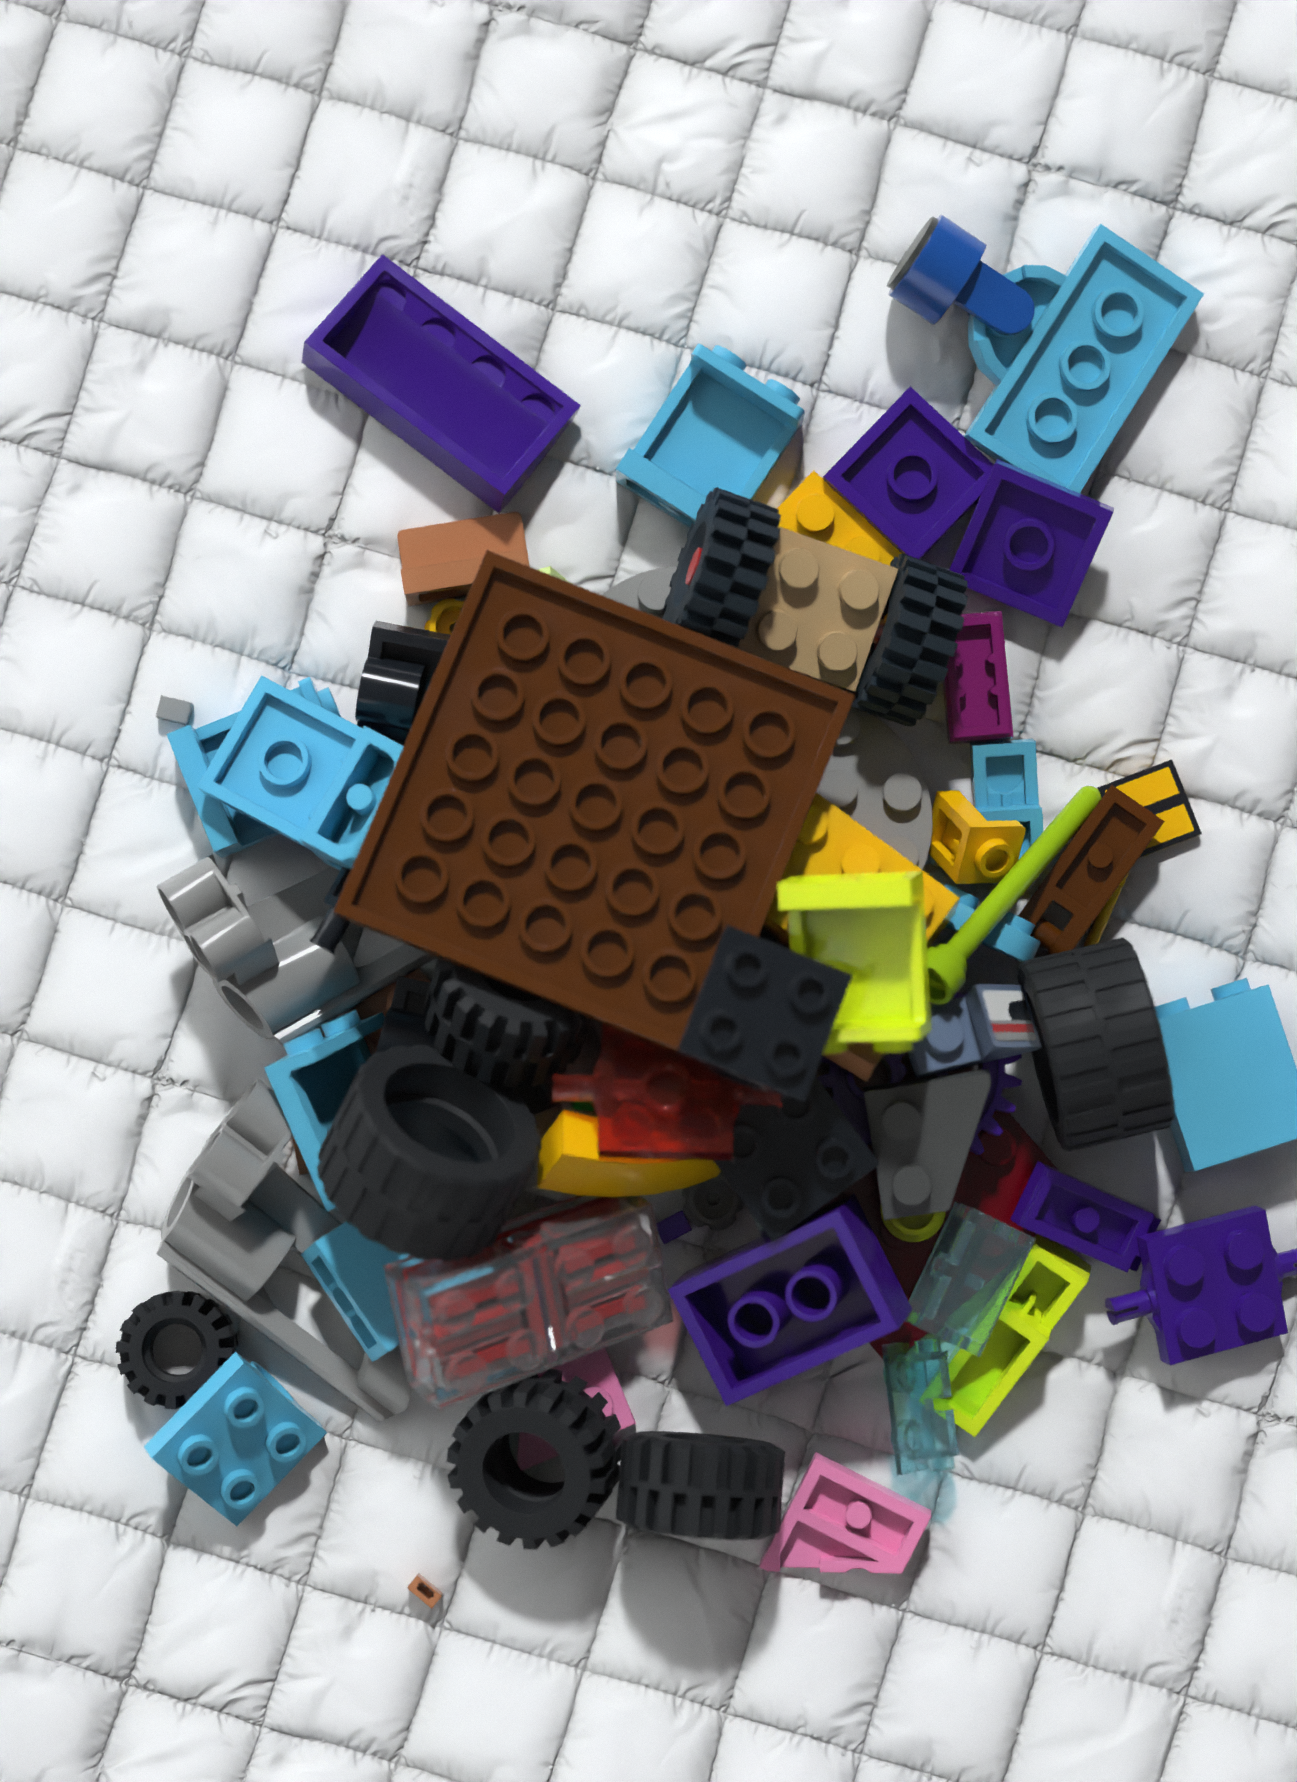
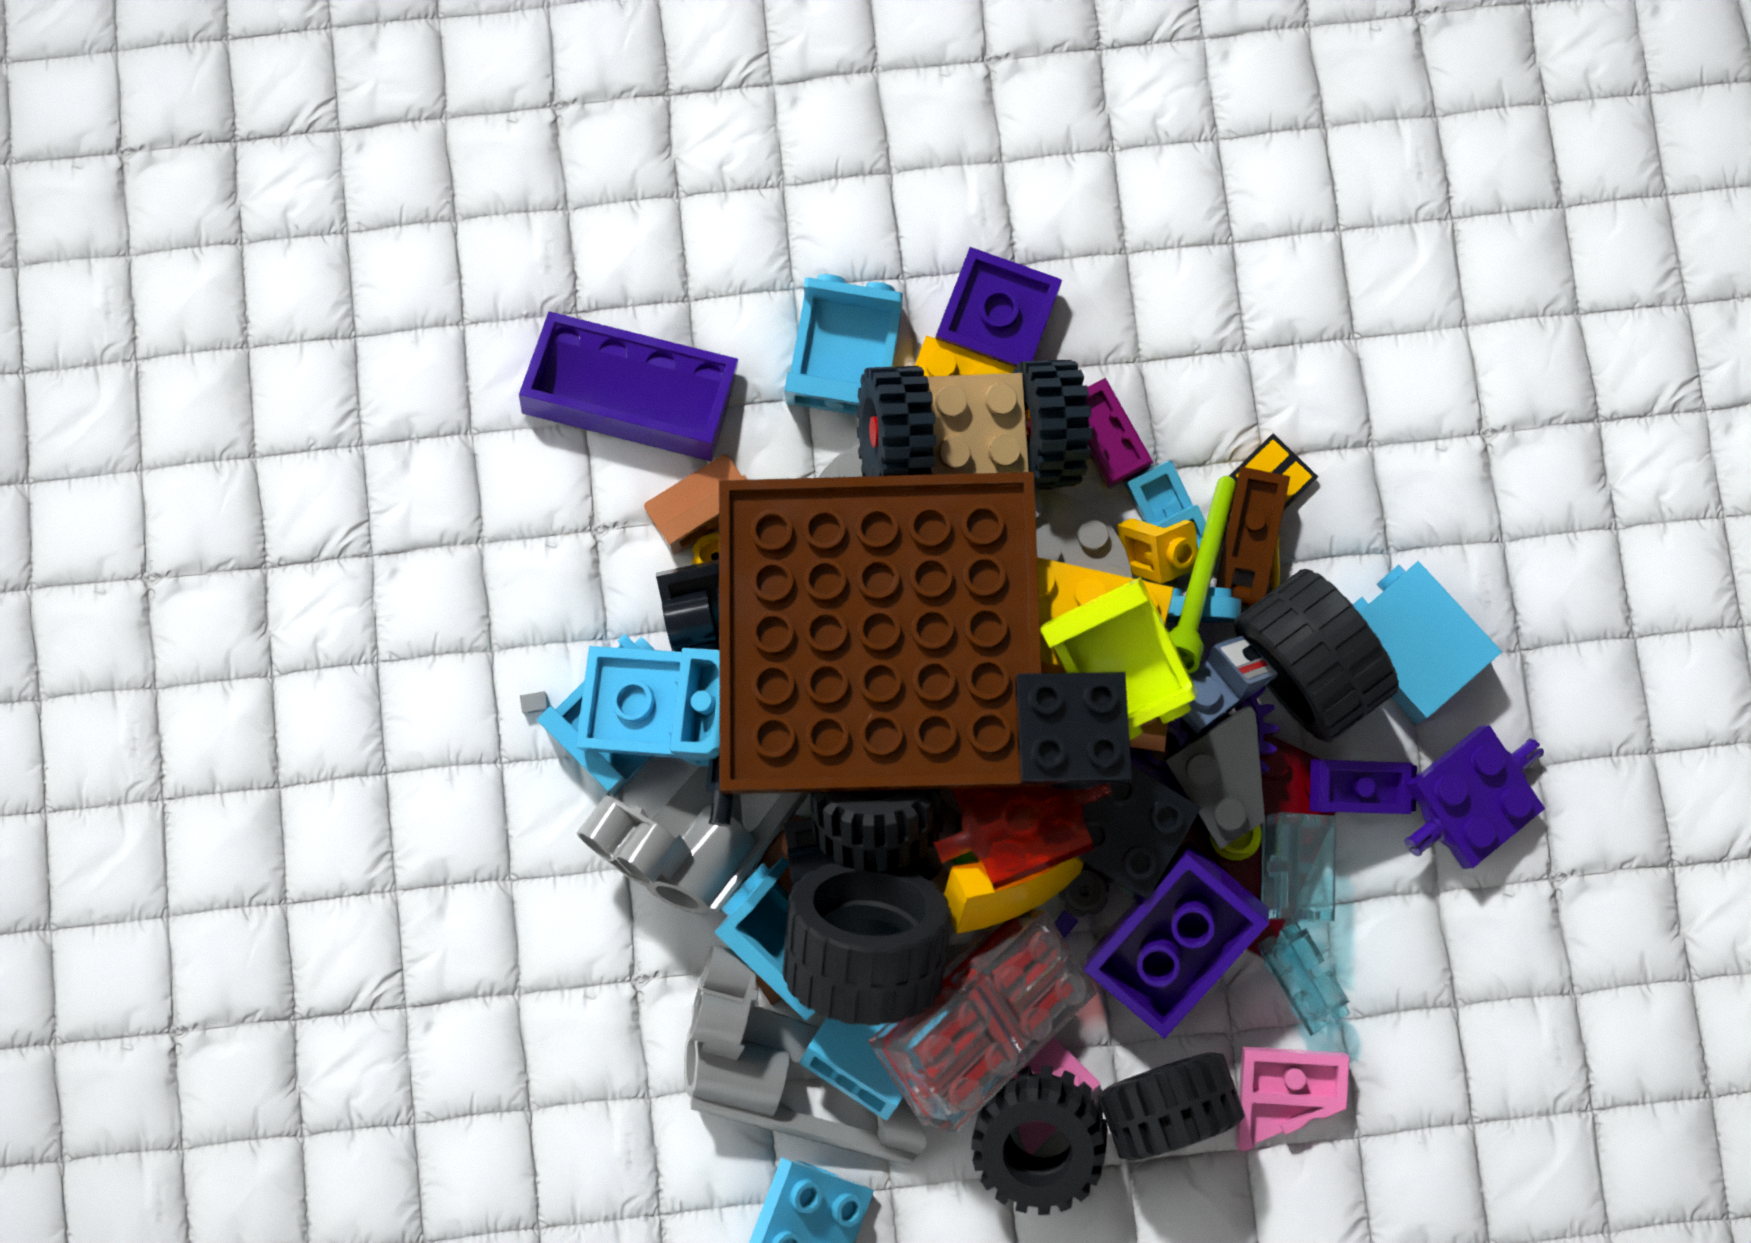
camera: 20 degrees left, 5 degrees down
(139, 1336) = (703, 1168): black tyre -> none
(1030, 542) = (1106, 319): dark purple plate -> none
(1036, 1303) = (1357, 861): neon yellow slope -> none
(1056, 346) = (1062, 175): medium azure plate -> none

